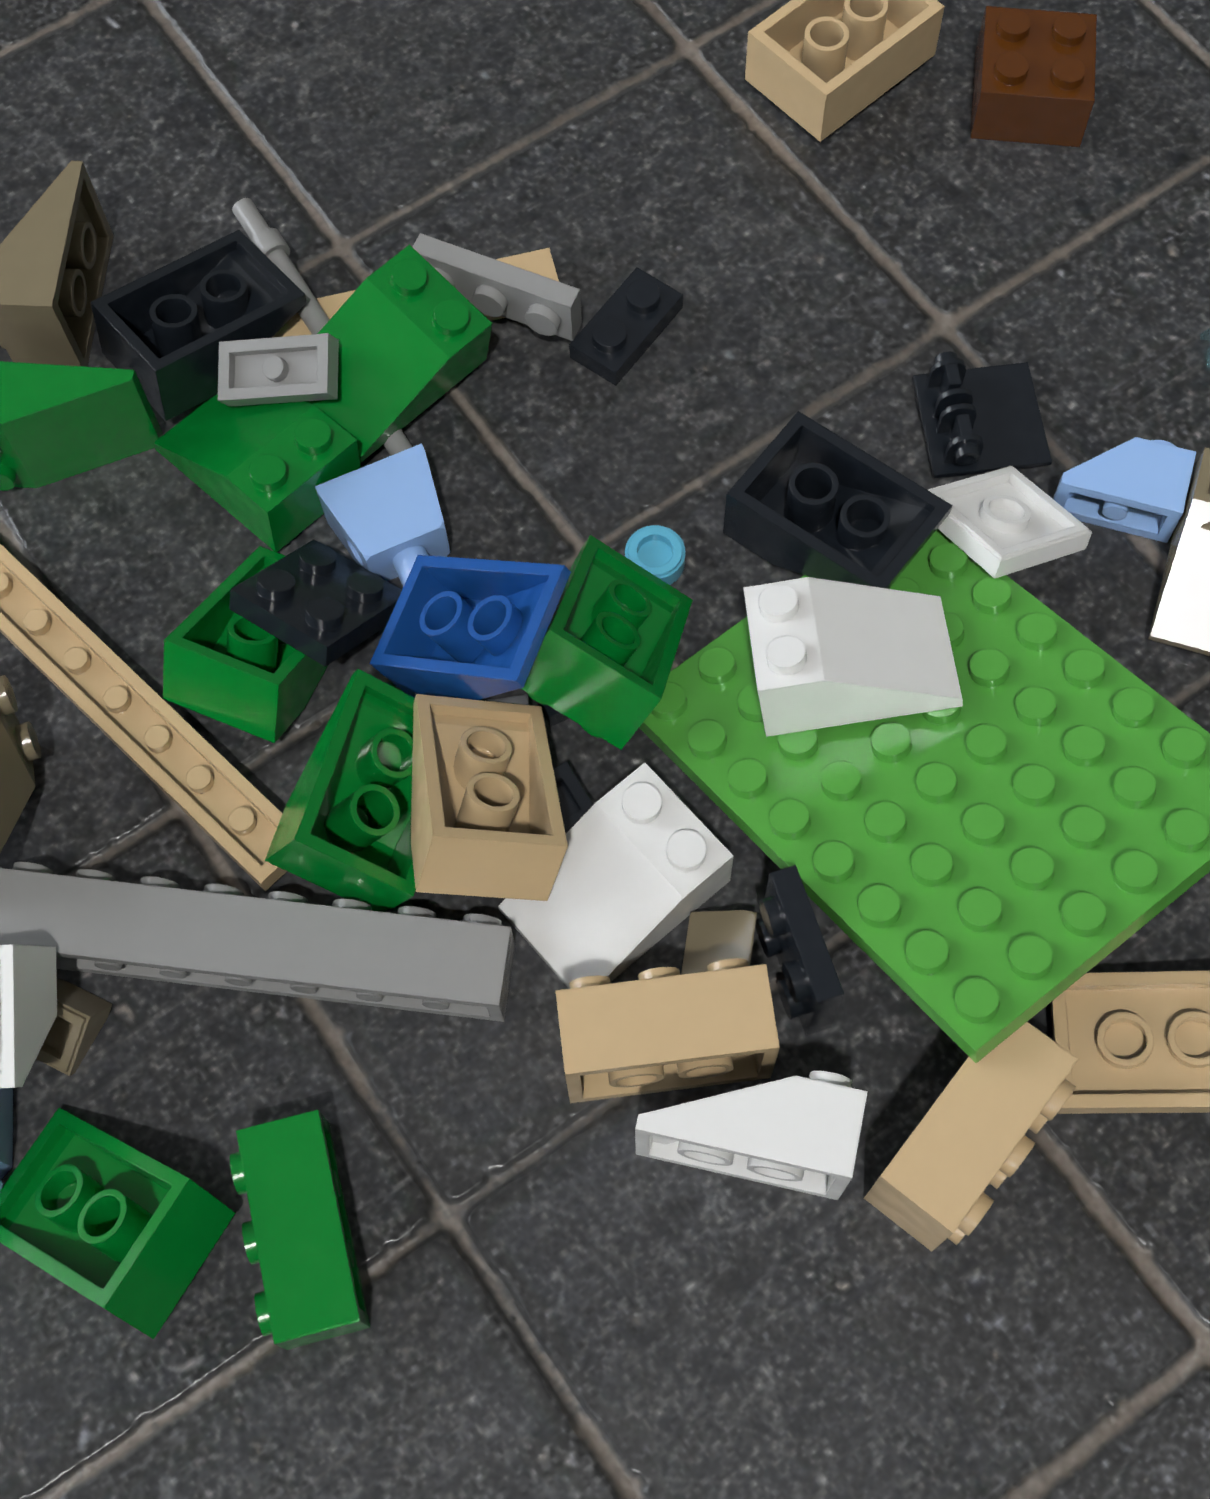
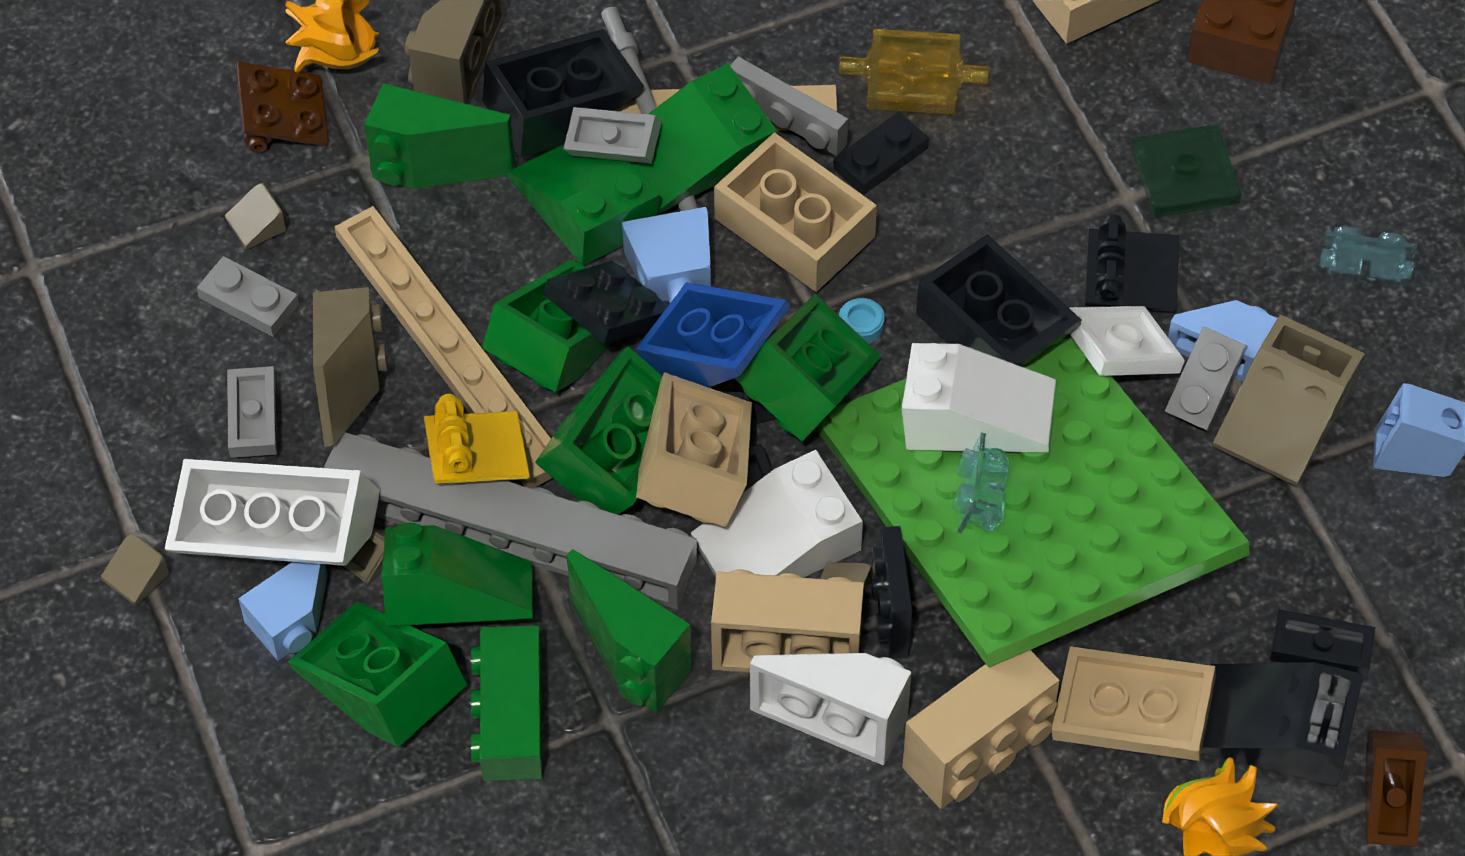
camera: 10 degrees right, 10 degrees down
(176, 852) = (474, 444): none -> yellow hinge
(181, 1061) = (451, 578): none -> green slope
(465, 1105) = (635, 636): none -> green slope
(538, 426) = (795, 211): none -> tan brick
(643, 211) = (913, 71): none -> clear yellow plate
(885, 759) = (981, 493): none -> clear light blue hinge
(1011, 276) = (1186, 170): none -> clear green plate
(1124, 550) = (1206, 378): none -> light grey plate

